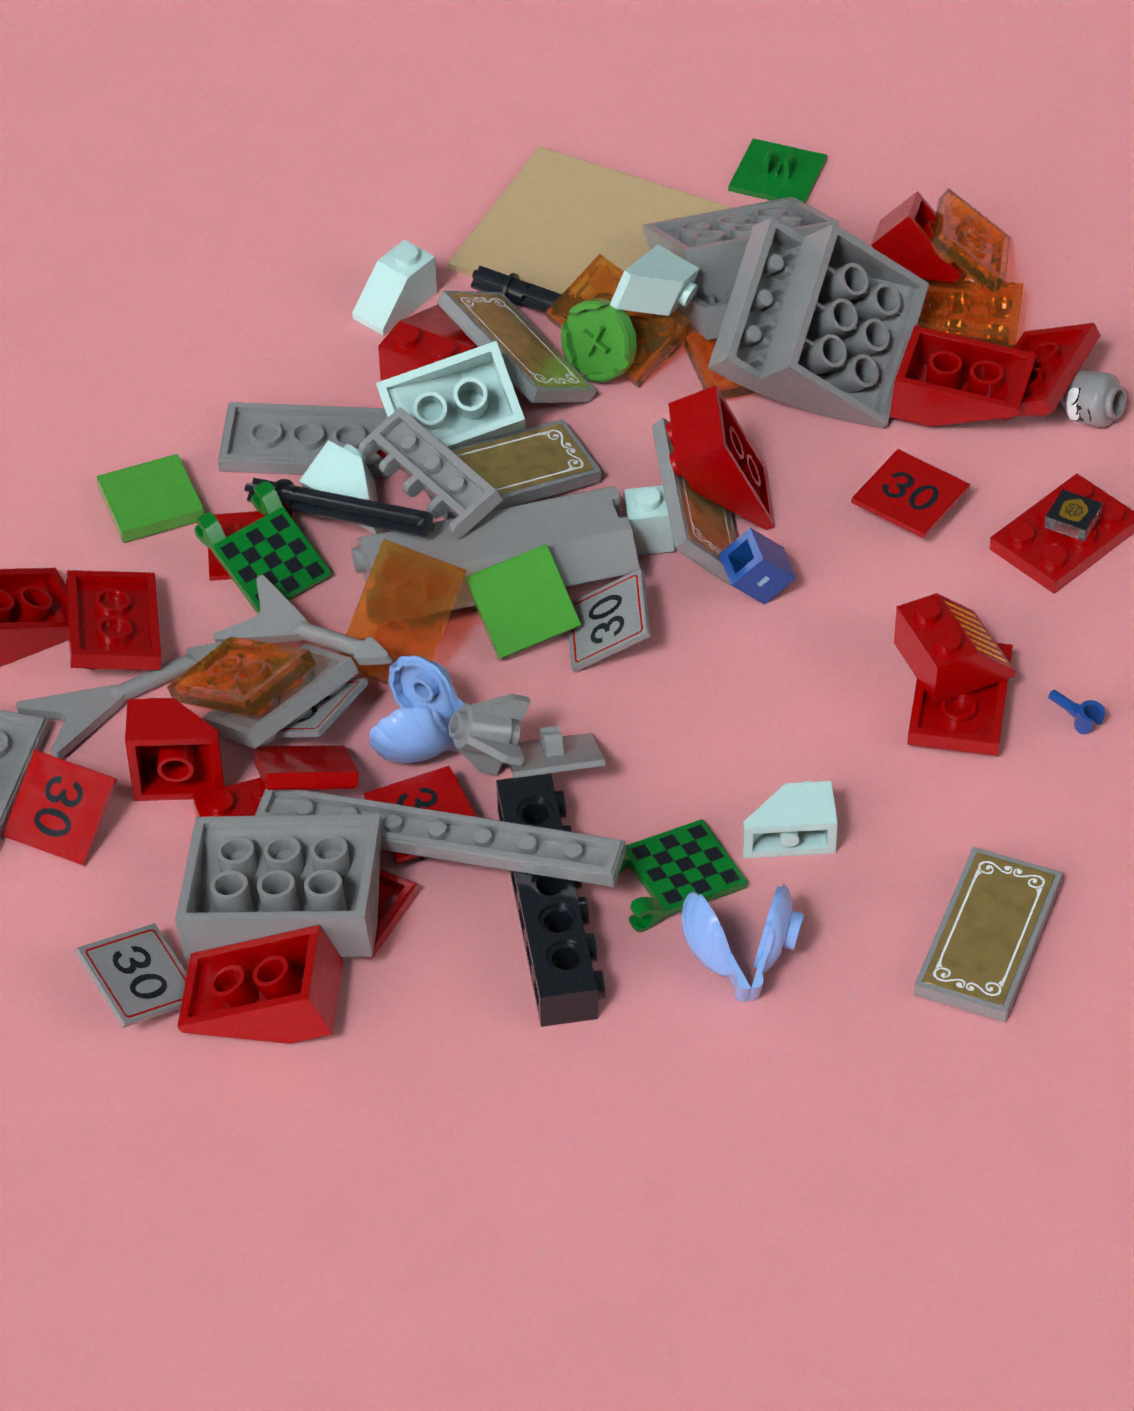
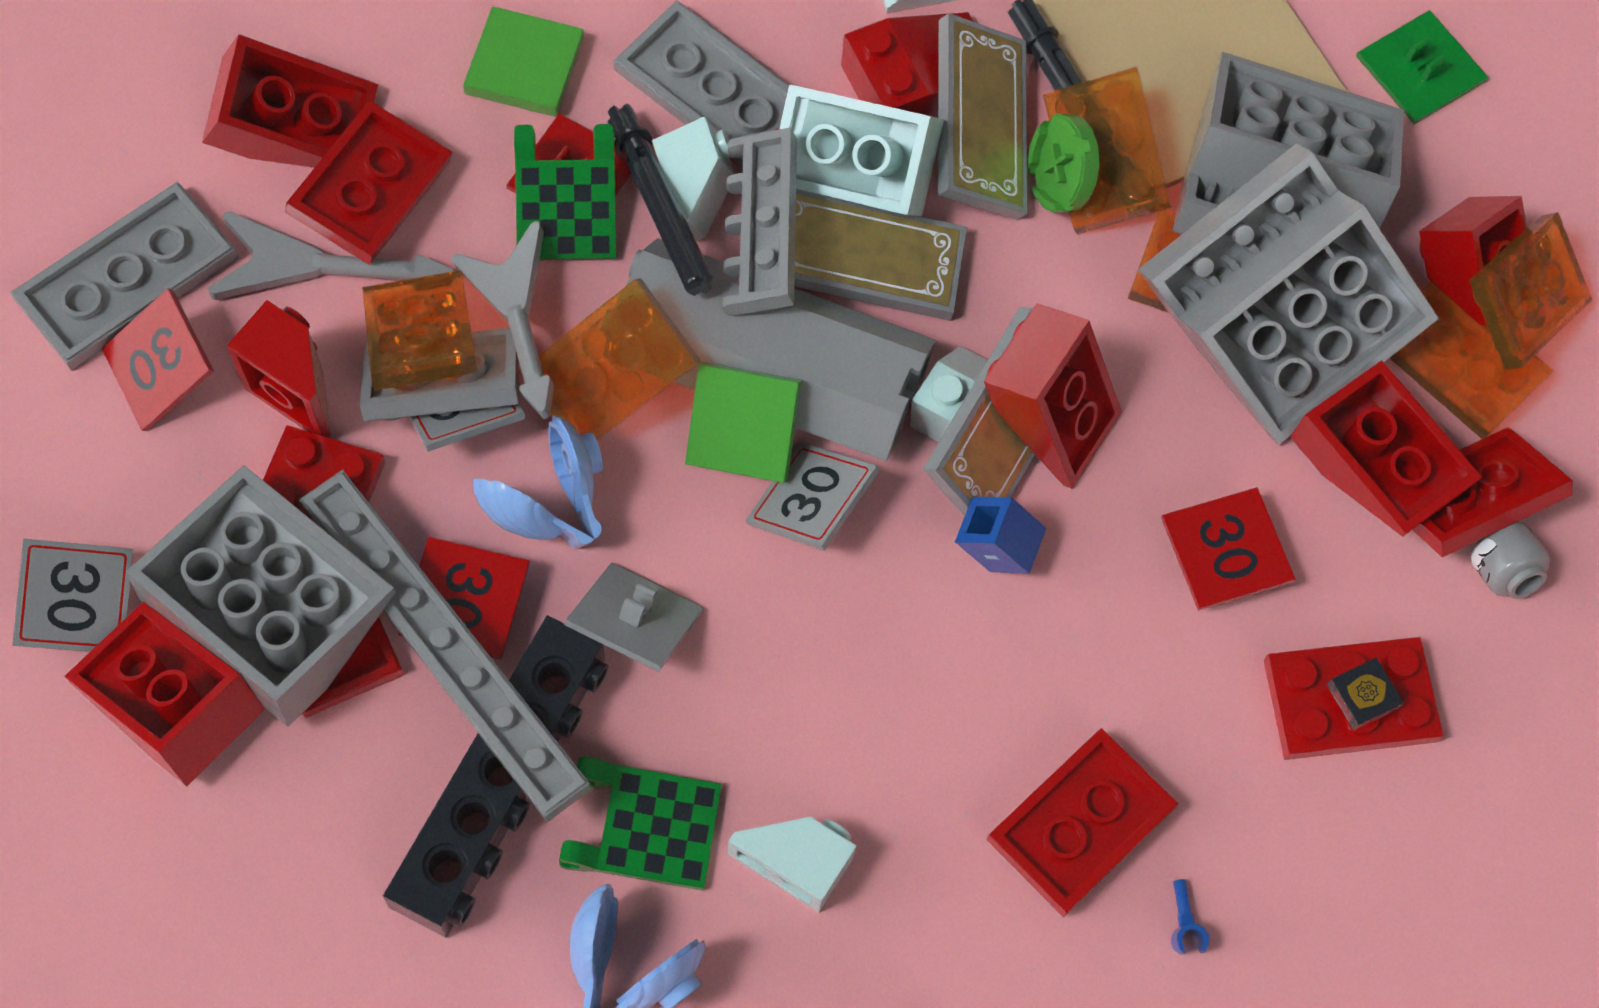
camera: 30 degrees right, 20 degrees up
(306, 767) = (395, 472): red tile -> none
(490, 732) = (581, 557): light grey brick -> none
(656, 283) = (1154, 143): light aqua slope -> none
(948, 647) = (1106, 772): red slope -> none

